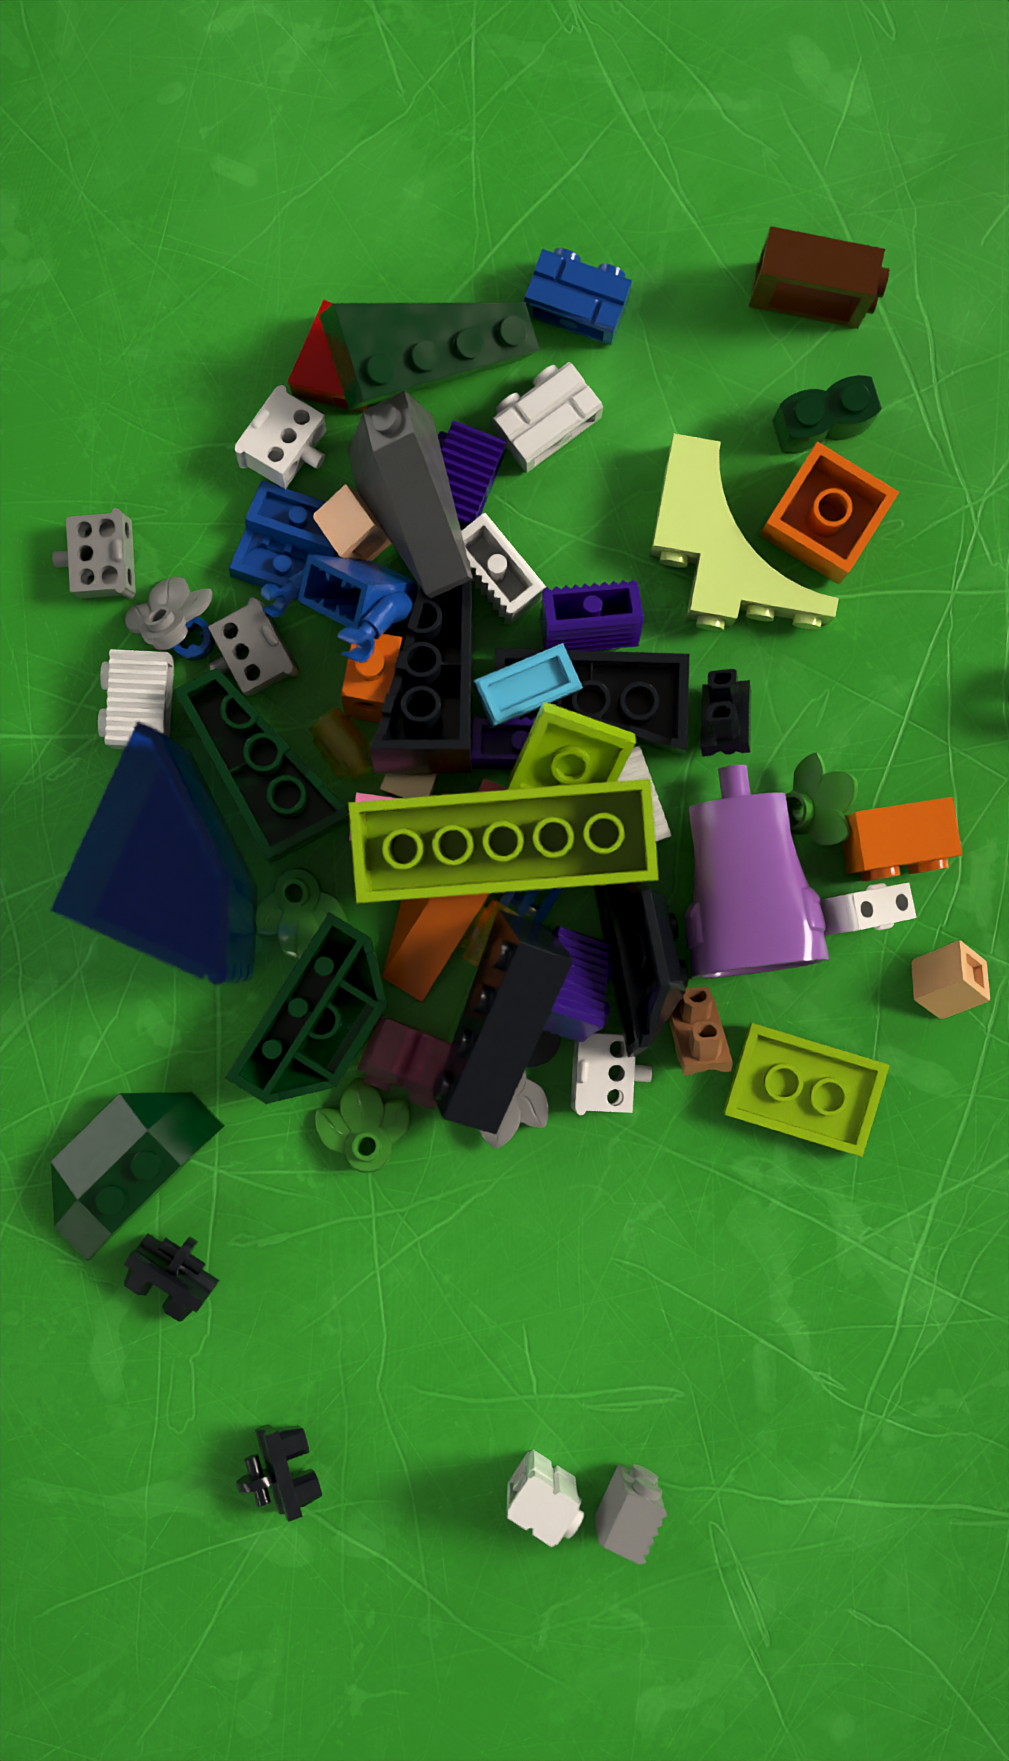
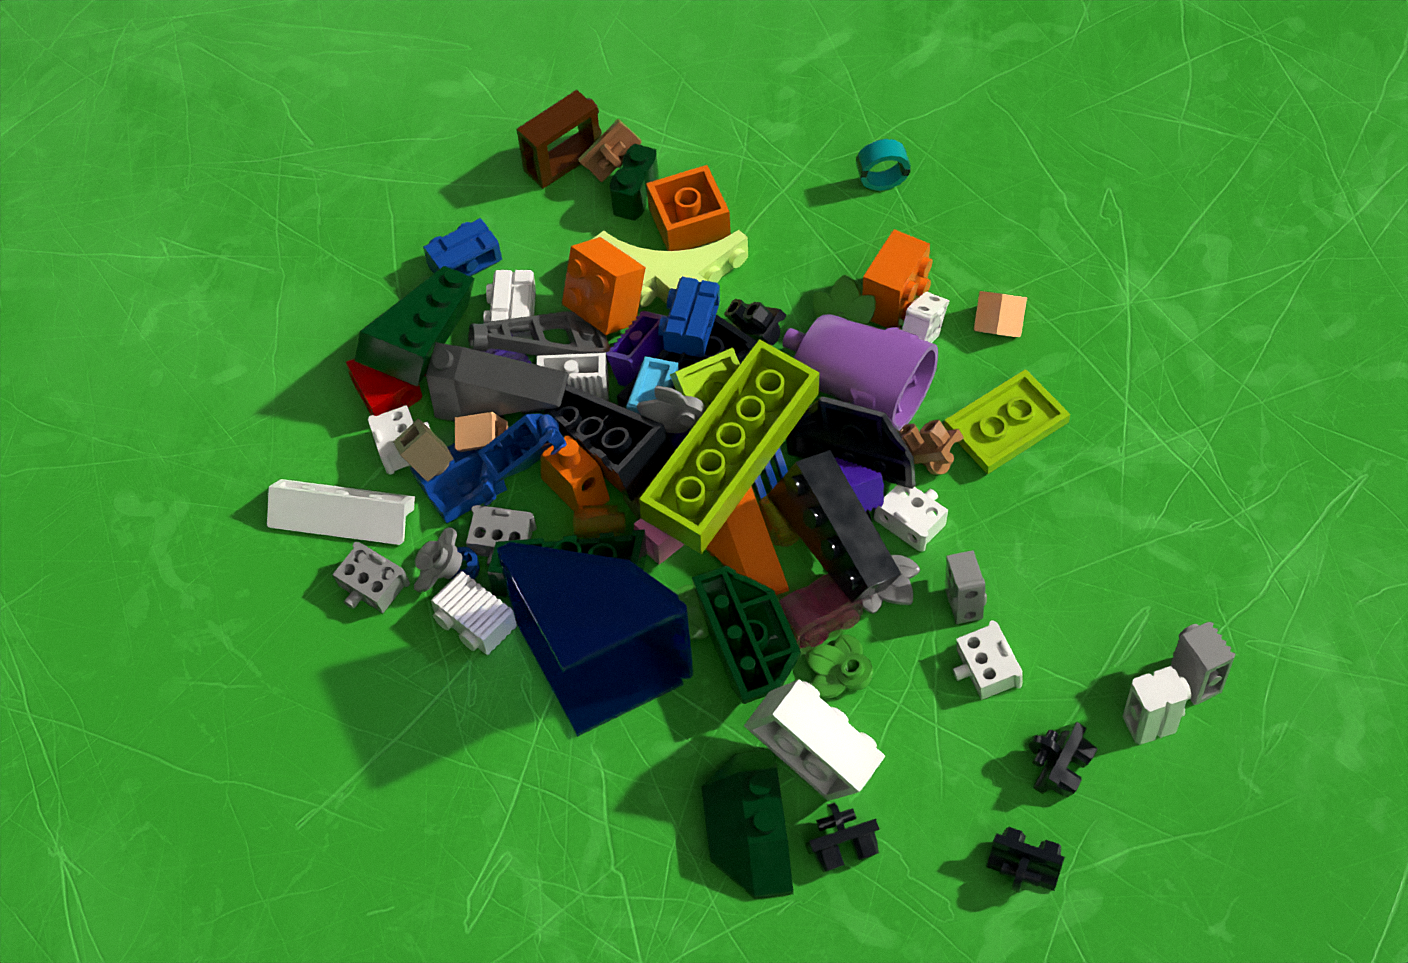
camera: 50 degrees left, 30 degrees down
(156, 448) = (338, 511): none -> white panel
(229, 1188) = (815, 740): none -> white brick
(270, 490) = (423, 450): none -> dark tan brick
(419, 1428) = (1069, 746): none -> black hips
(493, 1287) = (988, 661): none -> white piece
(506, 759) = (672, 409): none -> light grey plate
(547, 1197) = (965, 587): none -> light grey piece
(567, 534) = (497, 335): none -> dark grey plate
(635, 508) = (603, 285): none -> orange brick
(653, 653) = (690, 316): none -> blue brick
(847, 351) = (609, 150): none -> medium nougat hips

